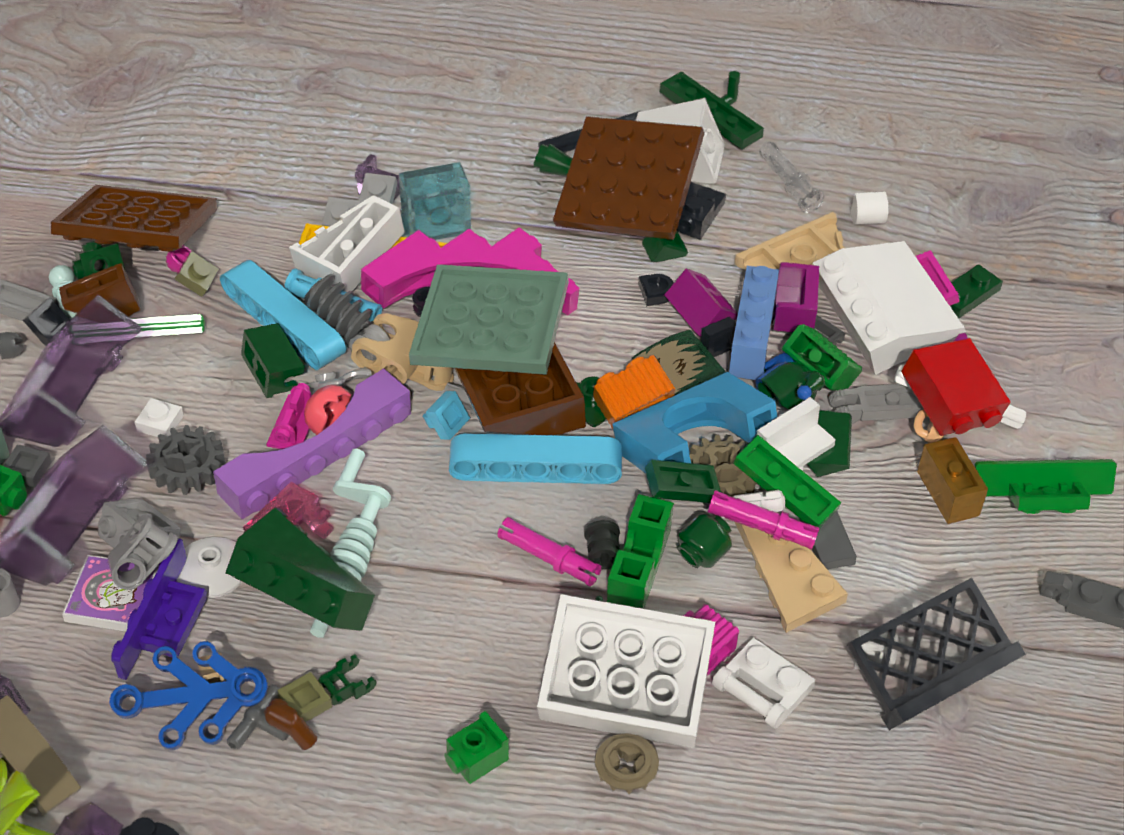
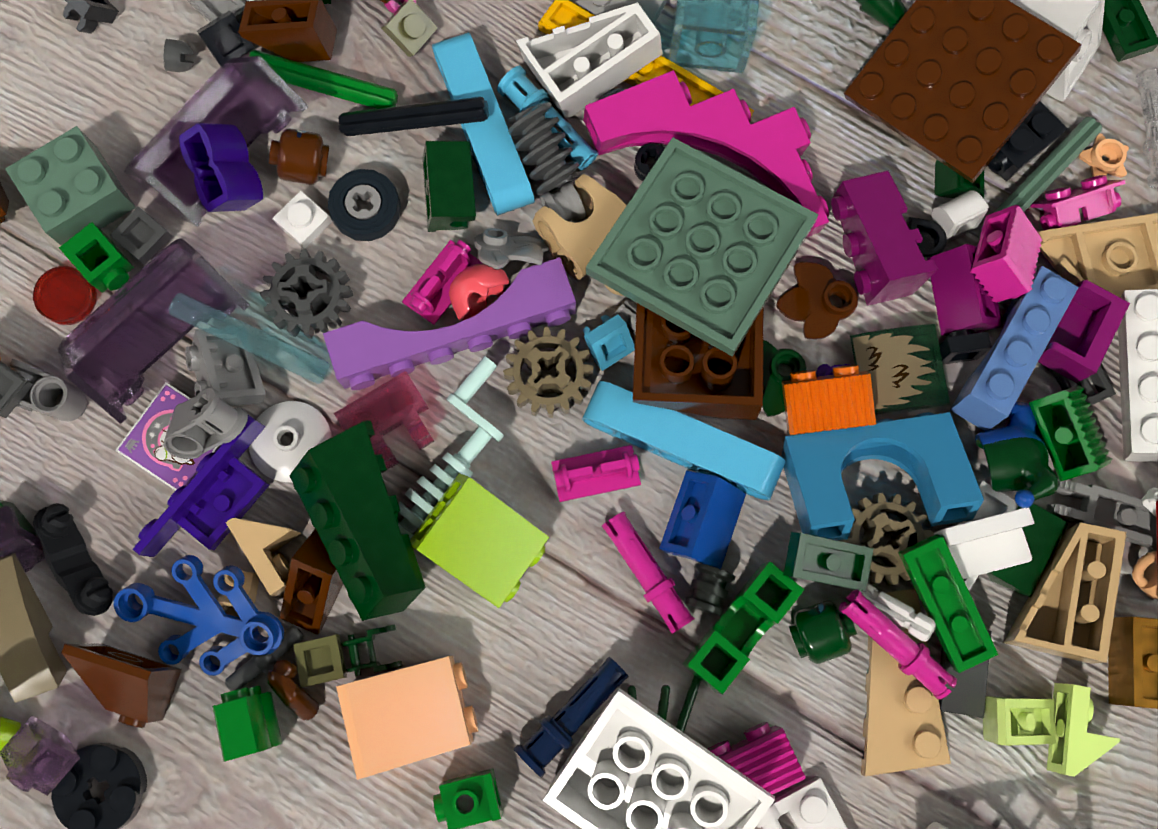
camera: 20 degrees right, 30 degrees up
(76, 719) = (70, 560): none -> black piece
(81, 393) = (221, 167): none -> dark purple brick
(140, 754) = (124, 681): none -> reddish brown slope
(142, 375) = (299, 156): none -> reddish brown head
(151, 497) = (248, 338): none -> clear light blue axle
(216, 403) = (365, 224): none -> black bush
(225, 321) = (414, 116): none -> black axle
(225, 631) = (259, 544): none -> tan slope
(264, 747) = (246, 722): none -> green brick
(277, 642) = (310, 586): none -> reddish brown slope
(395, 702) = (406, 715): none -> light nougat slope
(405, 563) = (480, 540): none -> lime brick
(410, 448) = (559, 358): none -> dark tan gear
(477, 503) = (596, 473): none -> dark pink hinge
(527, 677) = (557, 730): none -> dark blue pin
(574, 501) = (703, 519): none -> blue panel
(596, 345) = (812, 303): none -> reddish brown plate
(625, 292) = (879, 238): none -> magenta wedge
(675, 261) = (960, 214): none -> white brick
(719, 268) = (1006, 254): none -> dark pink brick
(724, 226) = (1053, 165): none -> sand green axle
(763, 204) = (1113, 150): none -> light nougat plate
(764, 224) = (1094, 197): none -> dark pink hinge
(879, 456) = (1075, 597): none -> tan wedge
(880, 542) = (1019, 721): none -> yellowish green slope
(927, 543) = (1074, 746): none -> yellowish green slope

